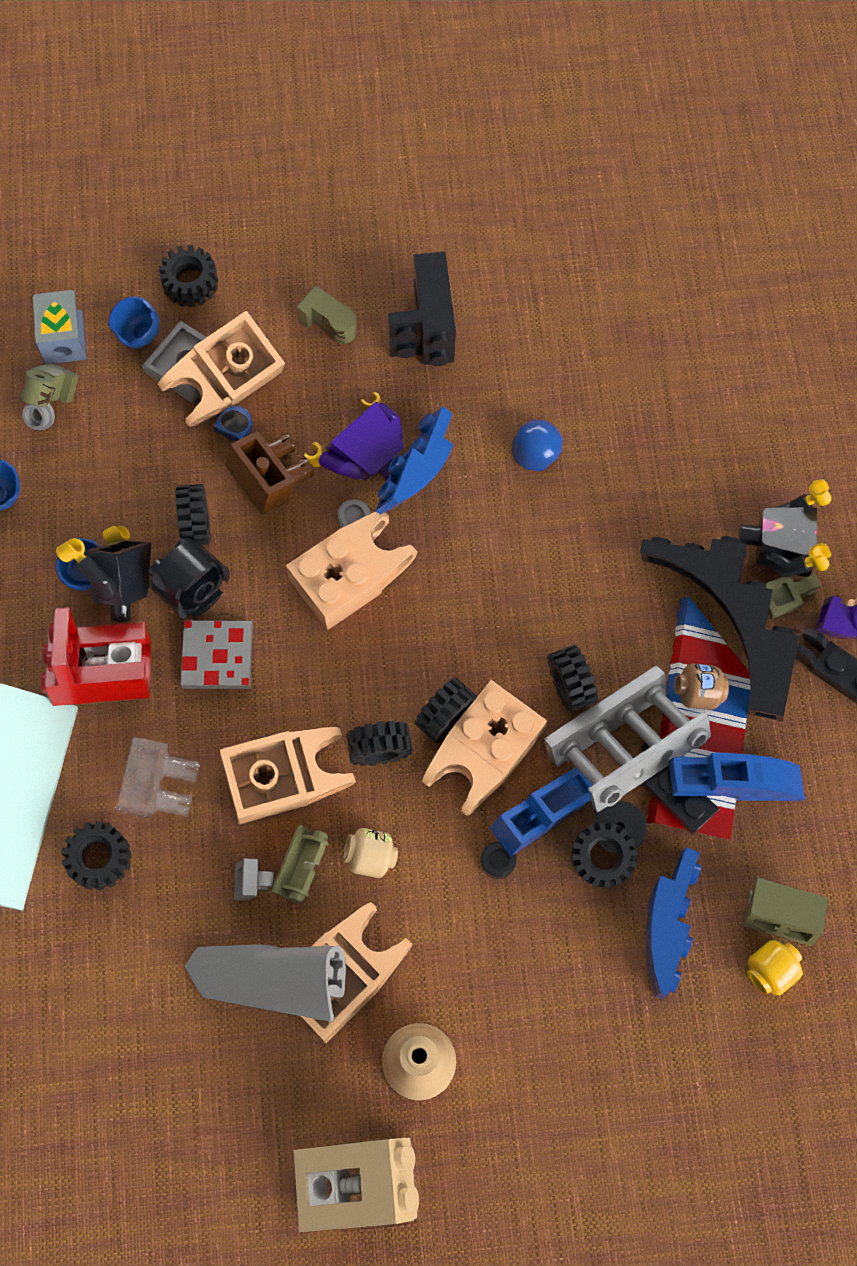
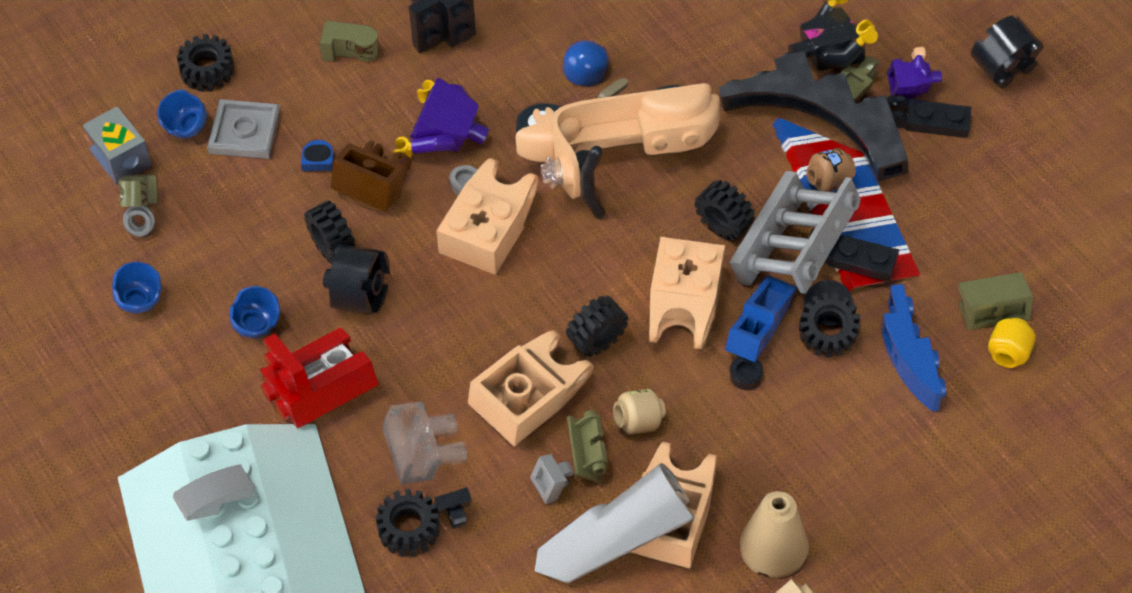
camera: 25 degrees left, 15 degrees down
(115, 570) = (293, 298): black torso -> none
(146, 861) = (453, 505): none -> black tile
(214, 373) = (289, 110): light nougat brick -> none
(217, 655) = (413, 331): light grey tile -> none
(418, 465) = (499, 110): blue slope -> none
(445, 709) = (636, 278): black tyre -> none
(570, 552) = (662, 119): none -> light nougat piece
(737, 775) = (897, 215): blue slope -> none

